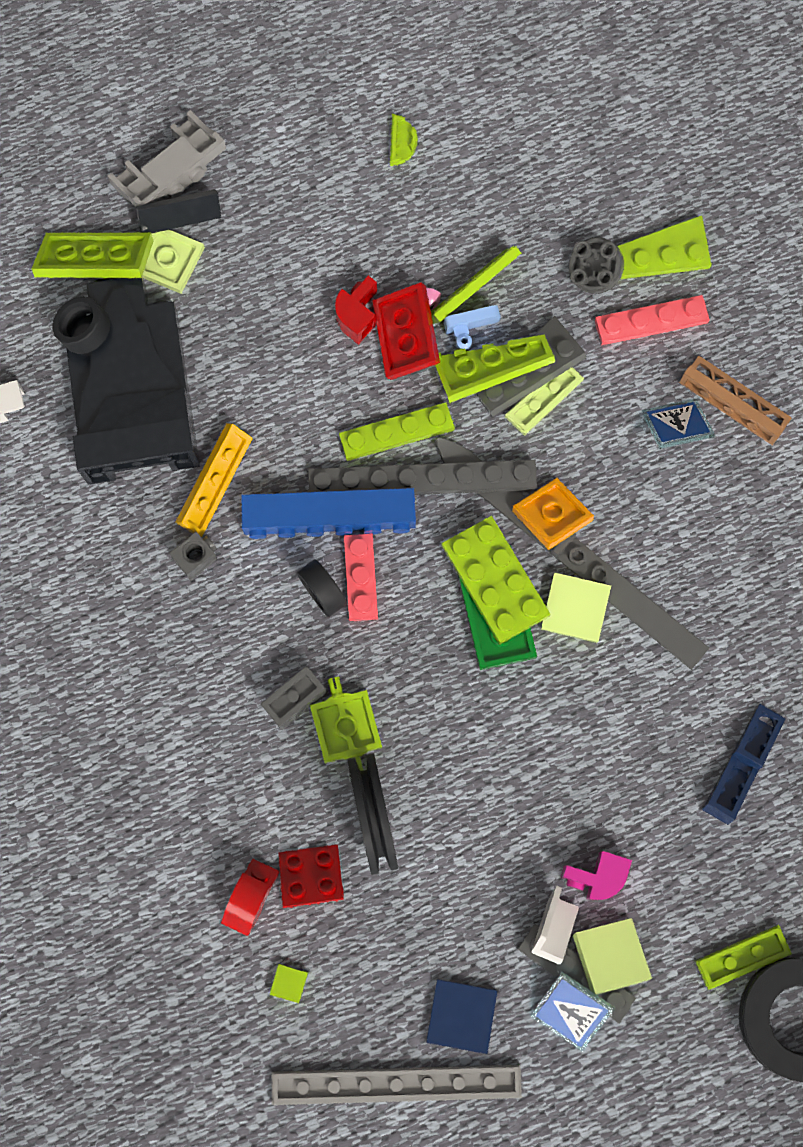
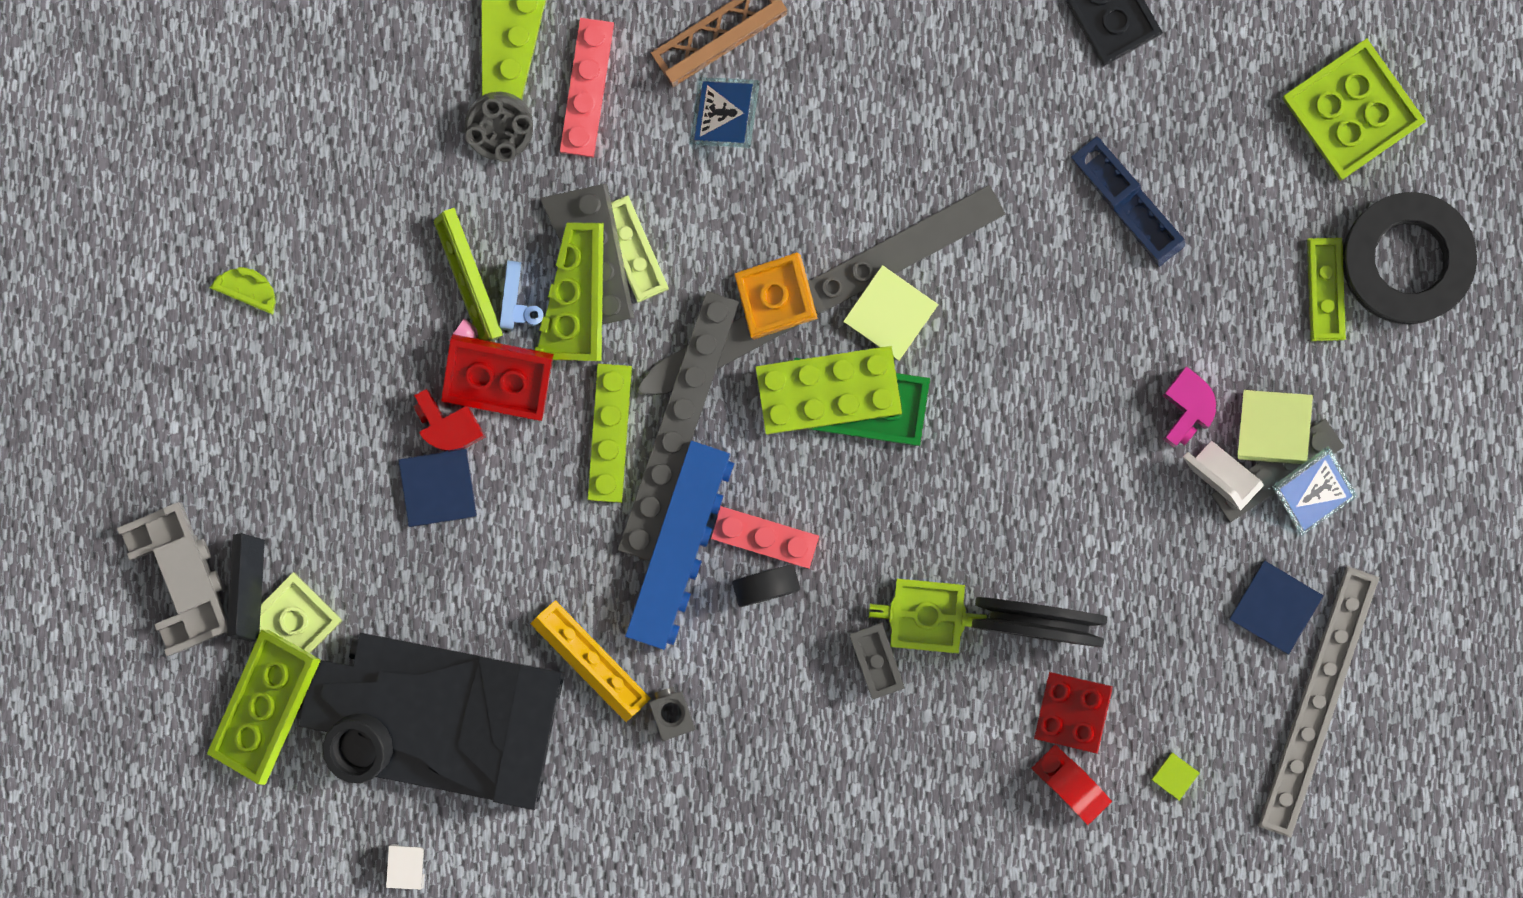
camera: 65 degrees left, 10 degrees up
(306, 323) = (437, 488): none -> dark blue tile

